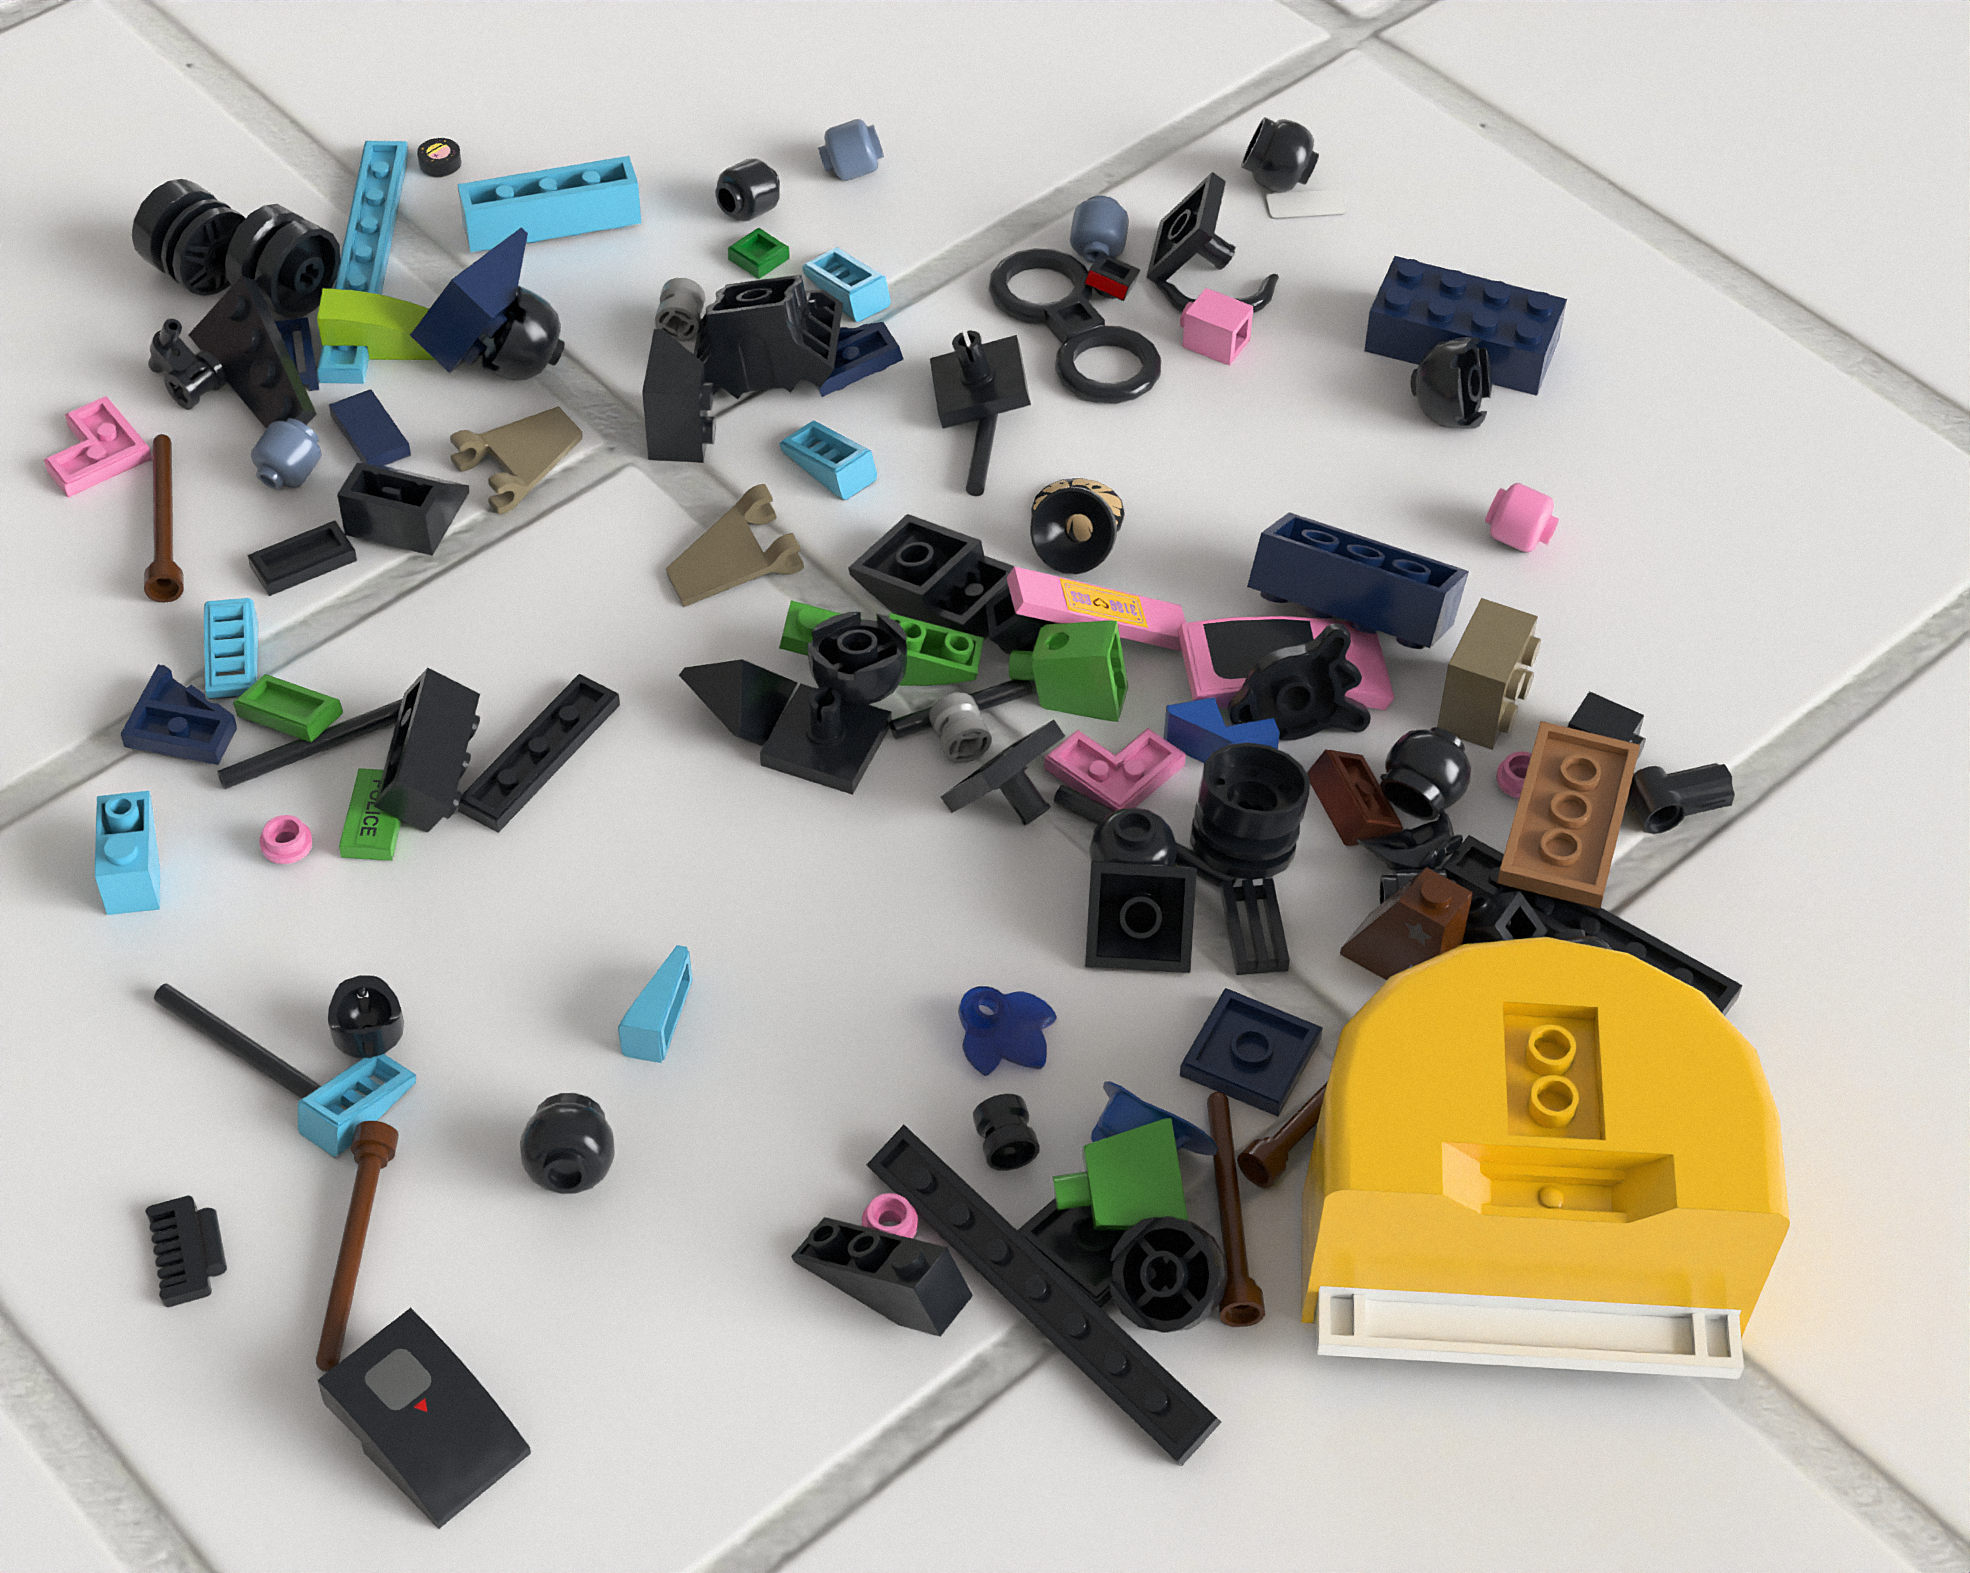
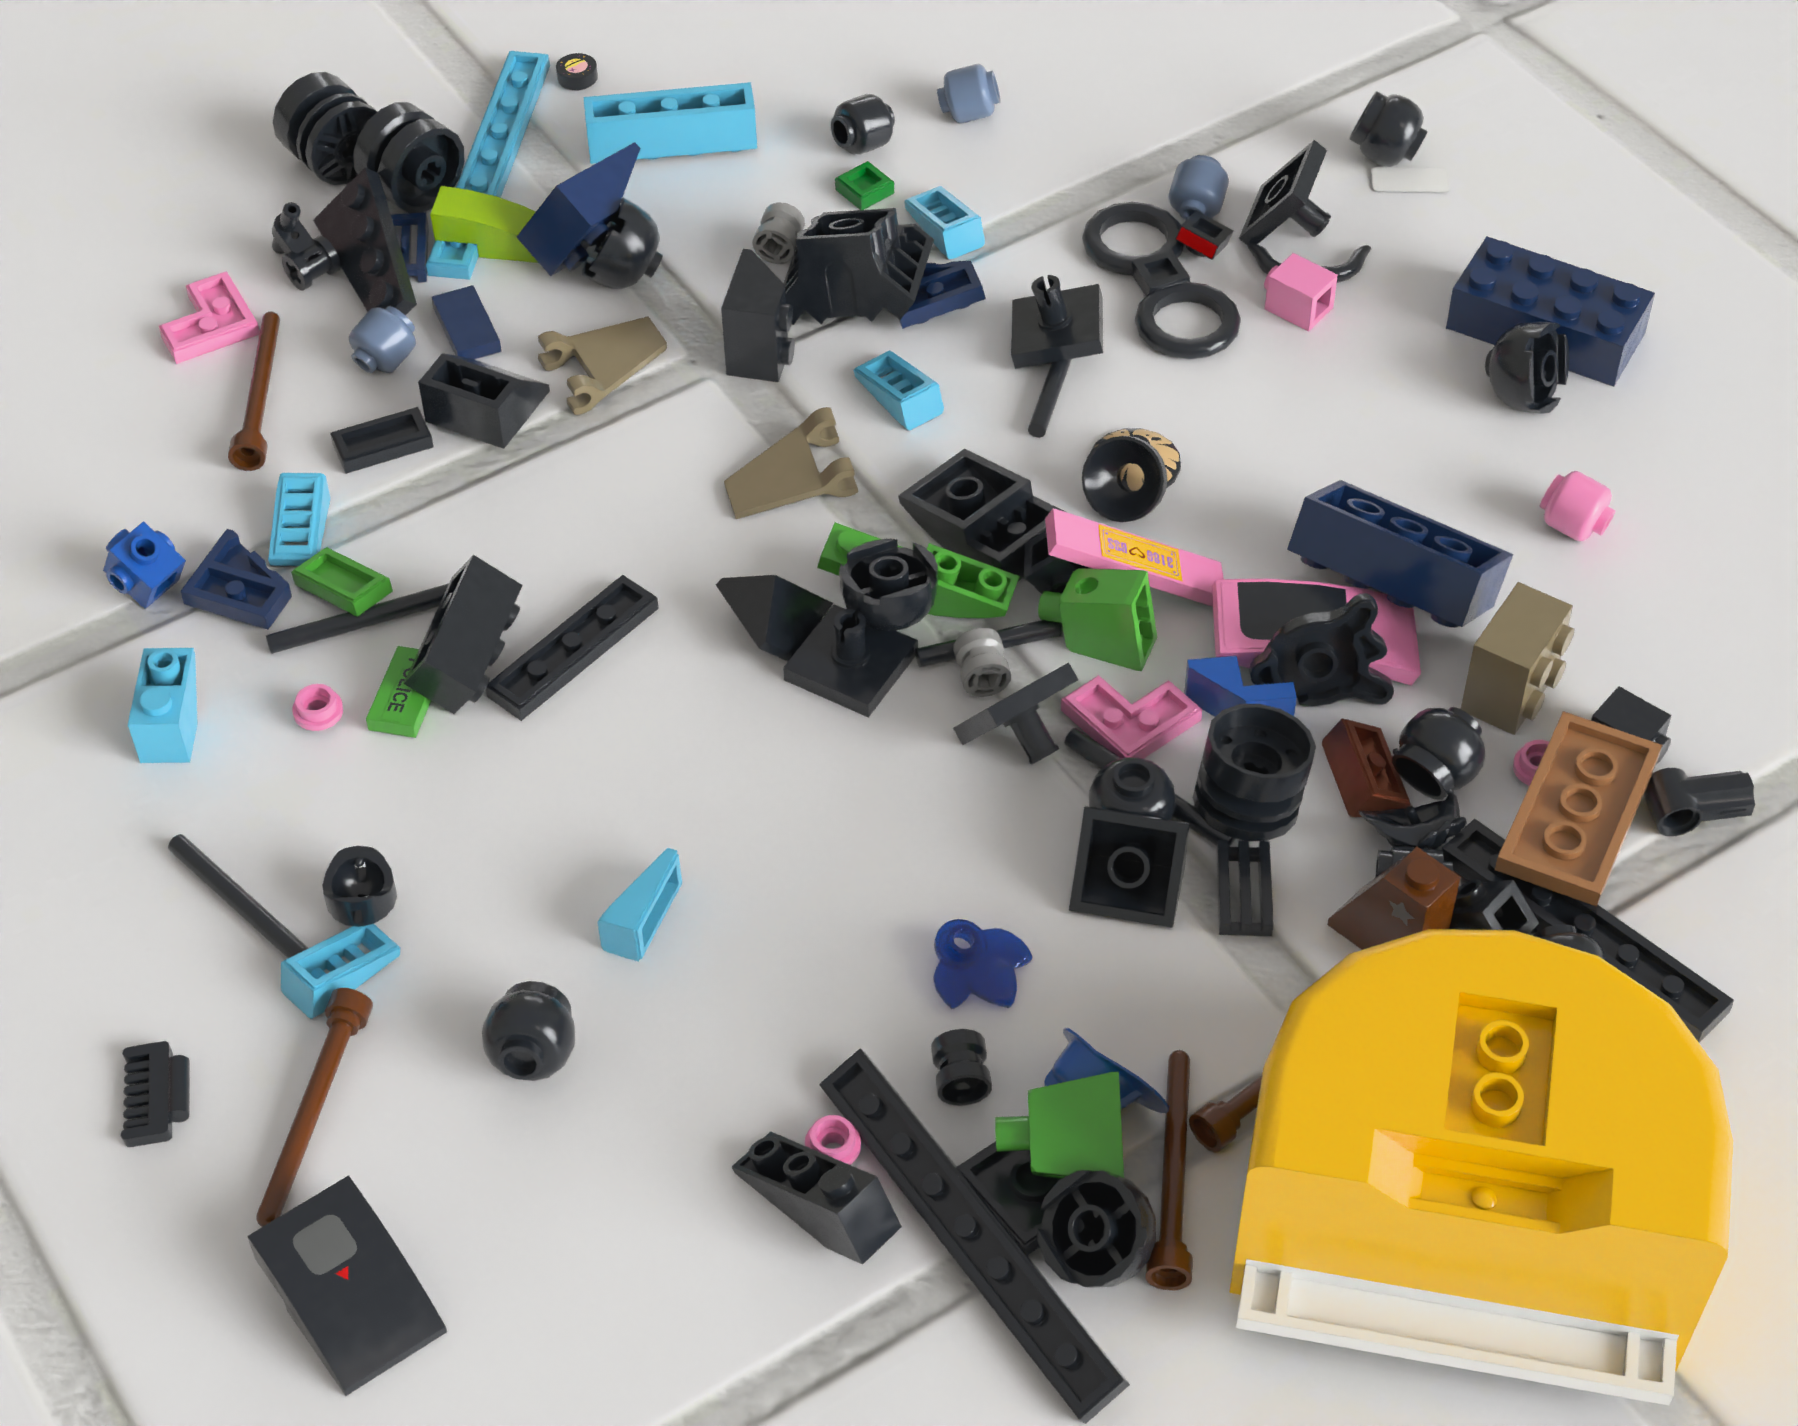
camera: 10 degrees right, 0 degrees up
(76, 709) = (142, 564): none -> blue brick
(1251, 1052) = (1220, 1013): dark blue tile -> none

